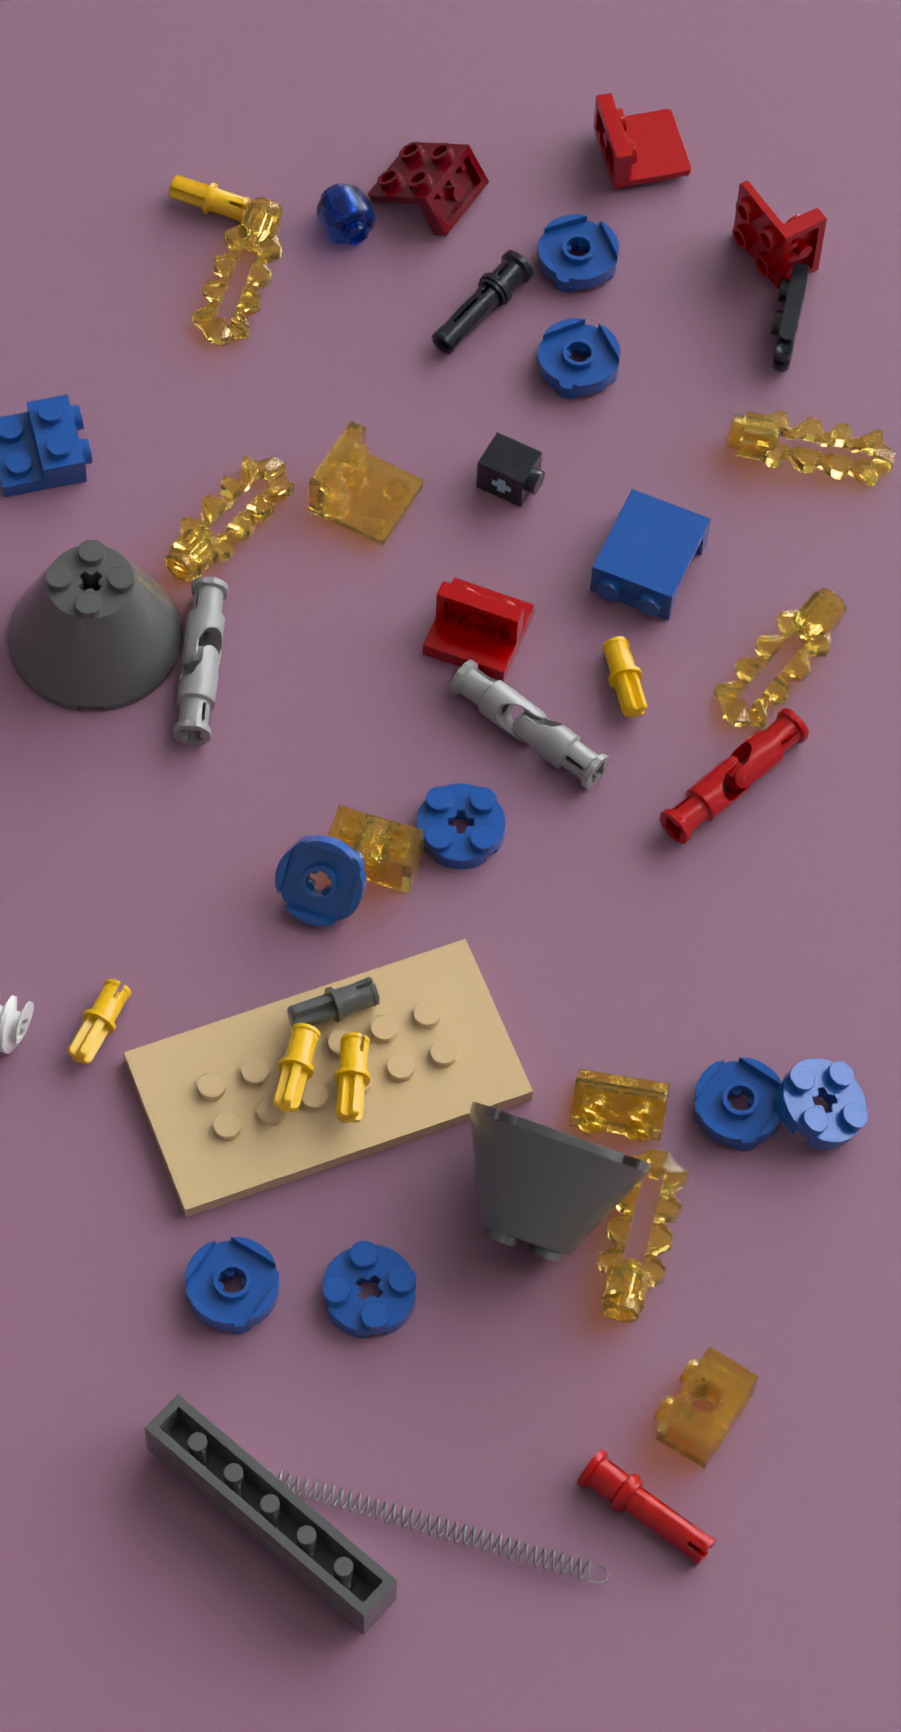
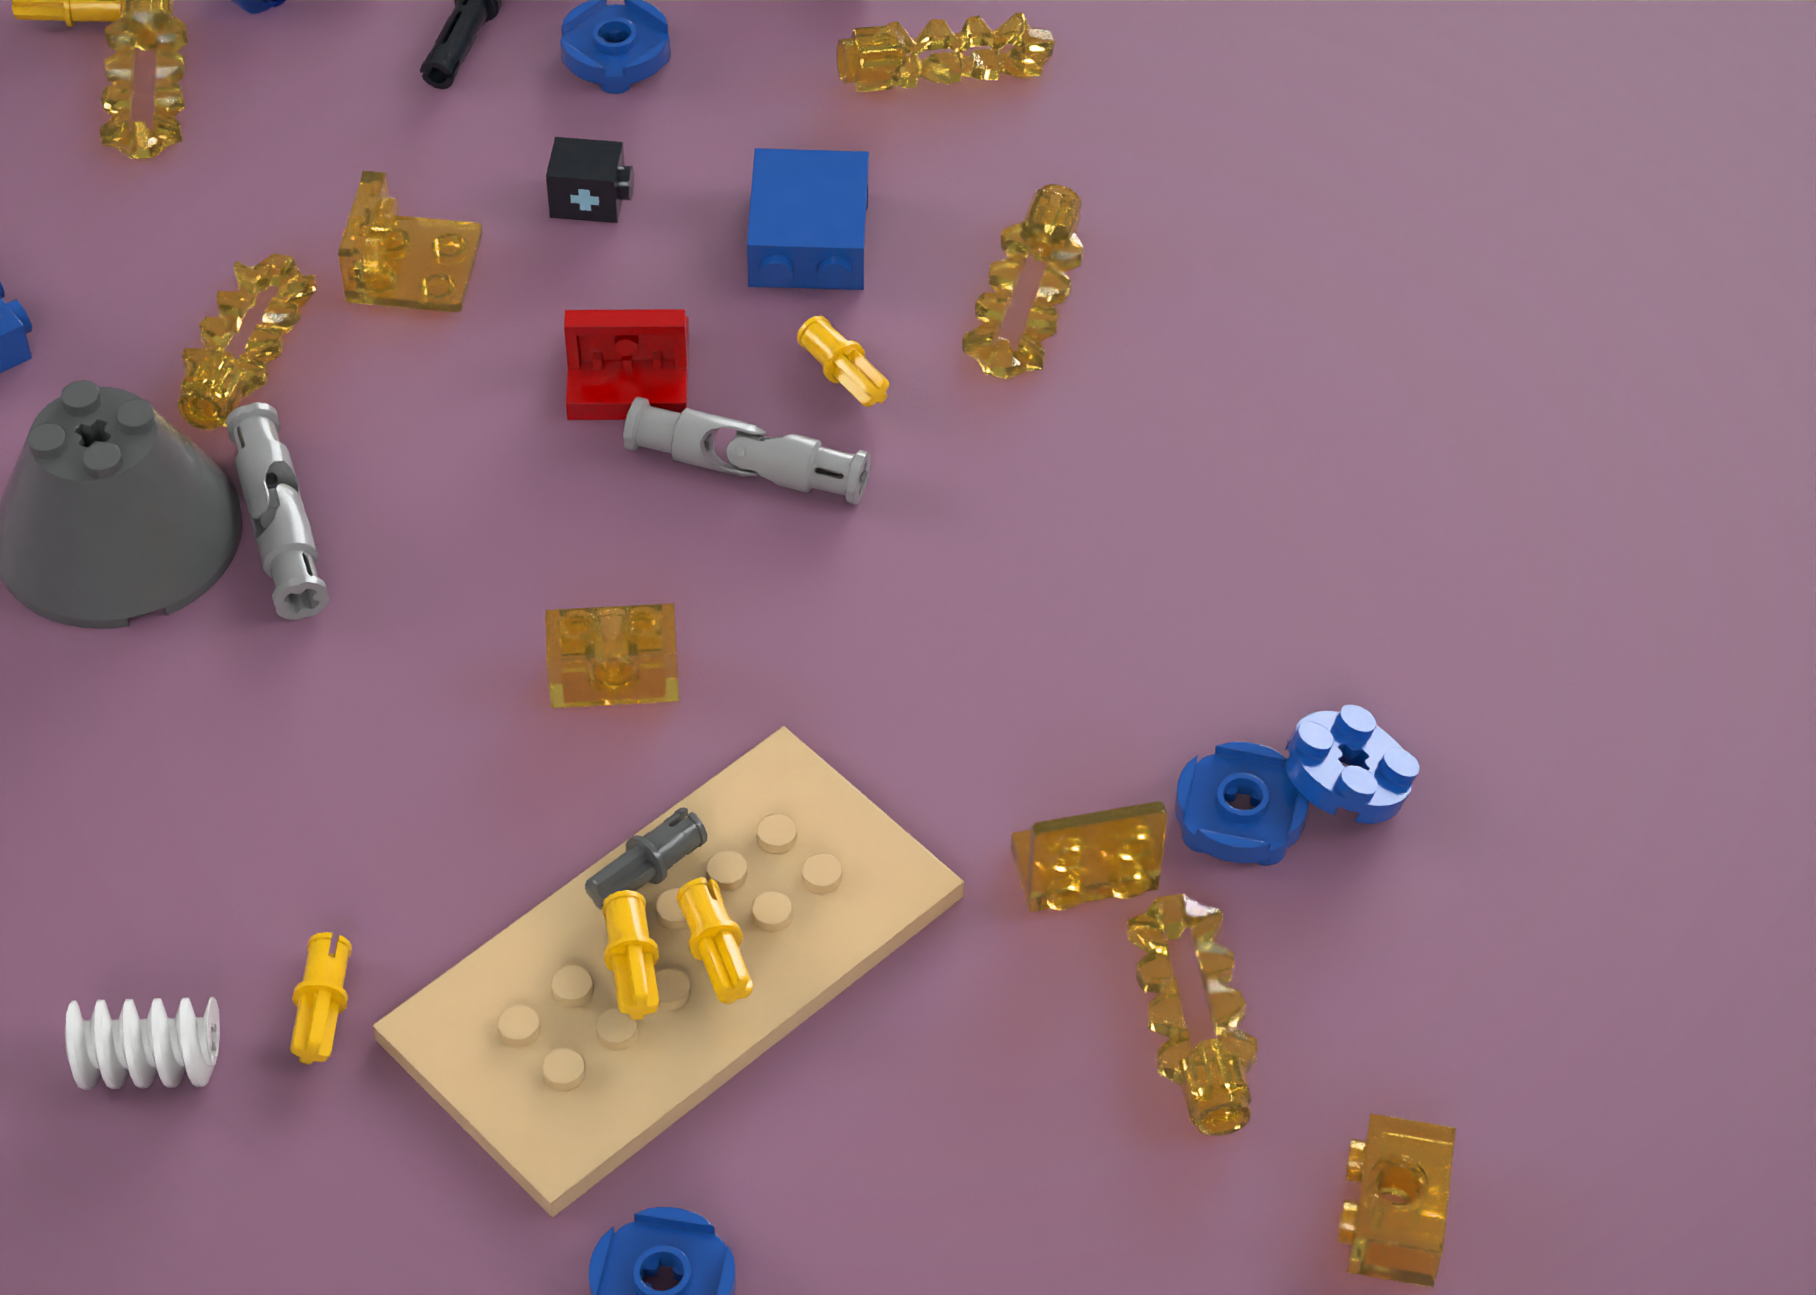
camera: 20 degrees left, 10 degrees down
(342, 867) = (531, 737): blue plate -> none
(368, 1264) = (853, 1181): blue plate -> none
(464, 802) = (721, 568): blue plate -> none
(544, 1182) = (1048, 969): dark grey cone -> none
(744, 766) = (1036, 429): red piece -> none

